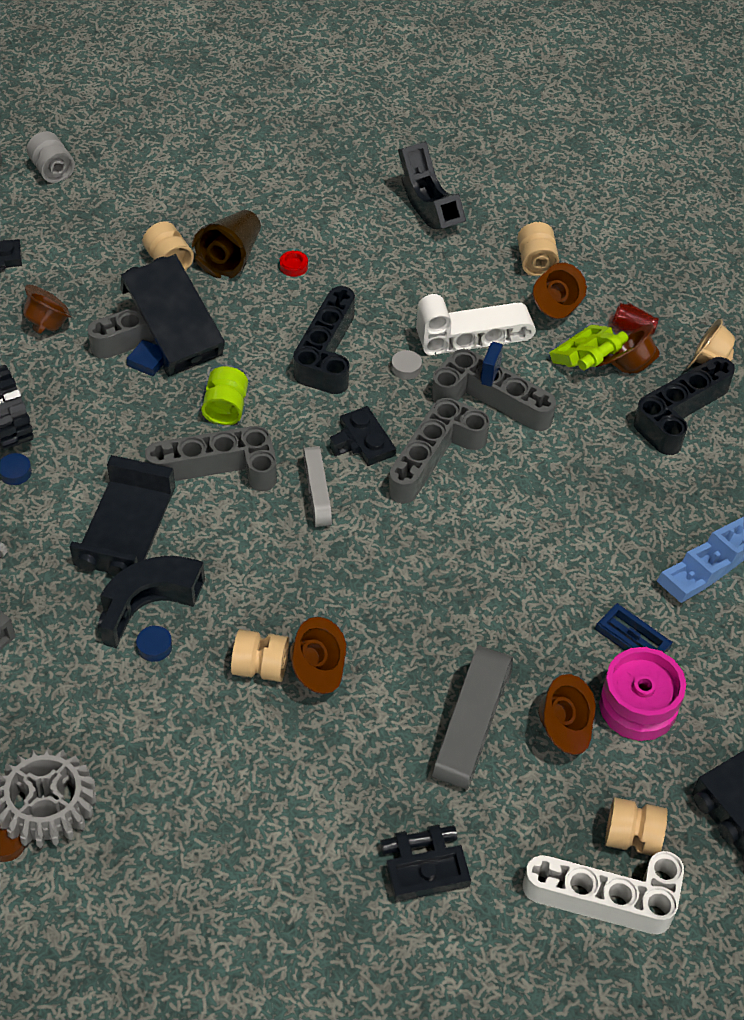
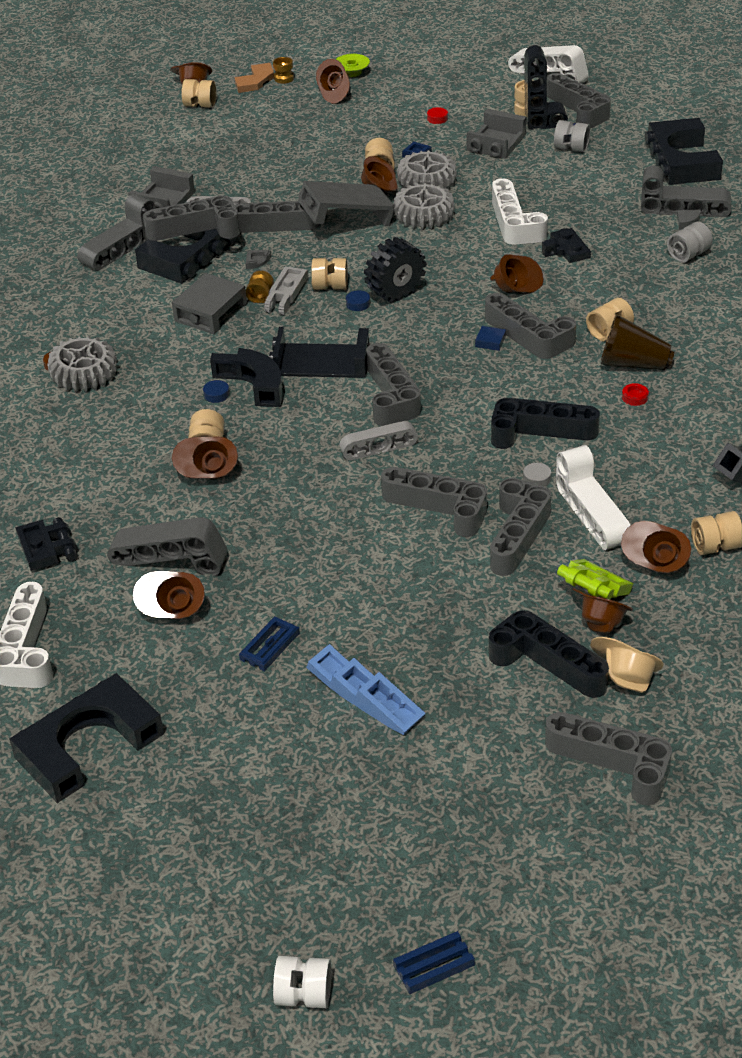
camera: 85 degrees right, 10 degrees down
(173, 313) = (521, 326): black panel -> none
(225, 395) = (454, 376): lime wheel -> none
(362, 435) = (444, 460): black hinge -> none
(491, 363) = (524, 500): dark blue tile -> none
(630, 318) = (653, 611): clear red cone -> none
(636, 826) = (75, 646): tan wheel -> none
(642, 693) = (197, 638): dark pink wheel -> none

